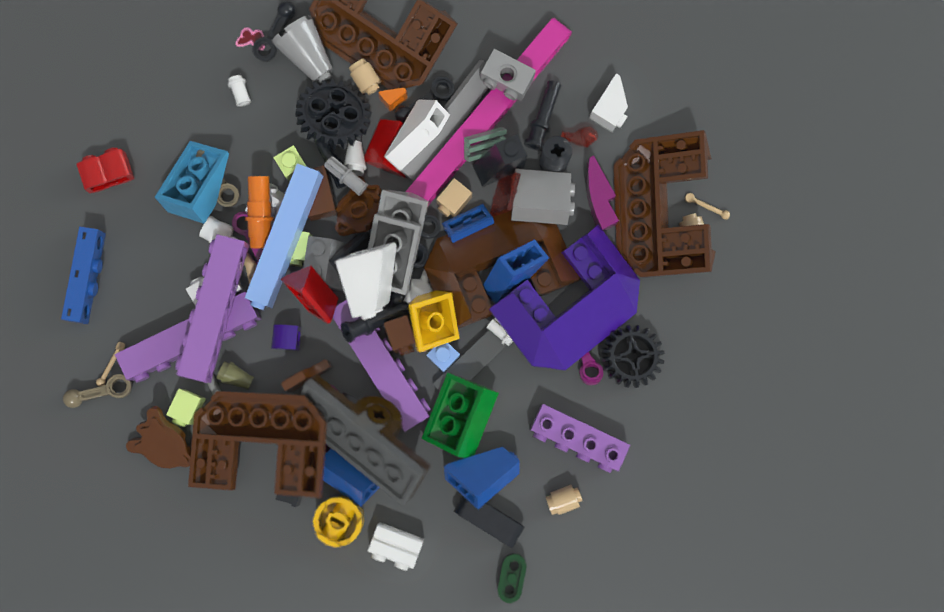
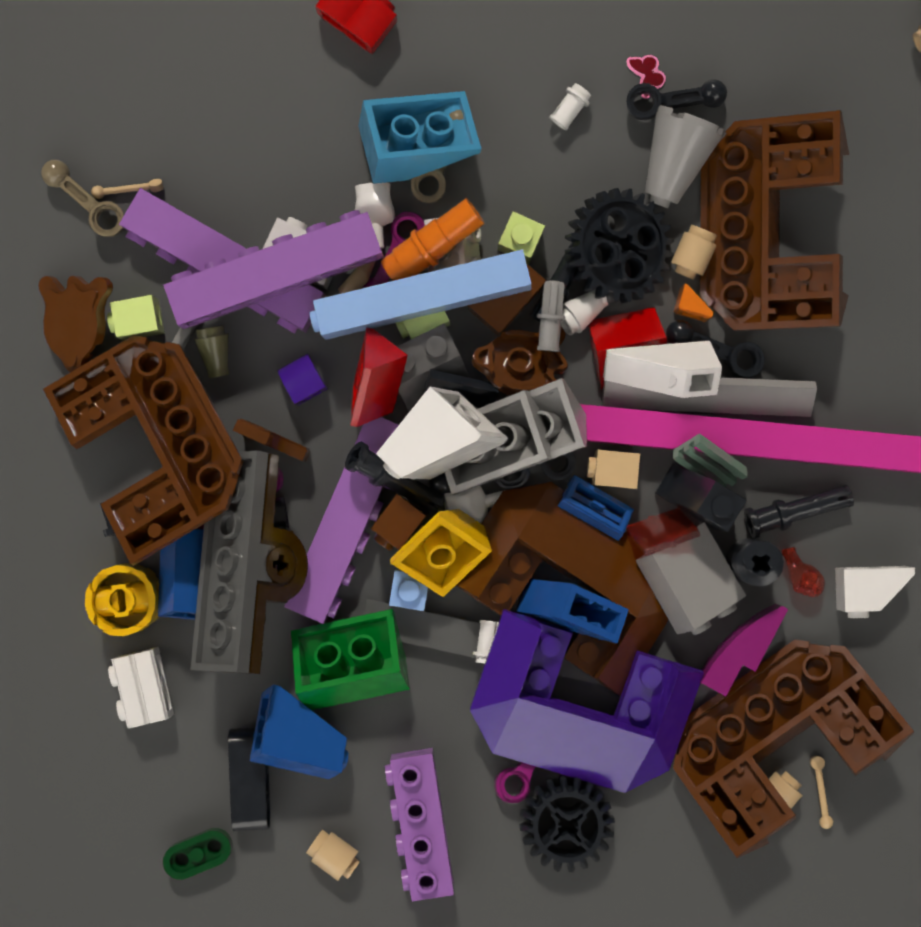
camera: 60 degrees right, 5 degrees up
(85, 286) = (197, 91): blue piece -> none
(503, 64) = (825, 414): light grey brick -> none

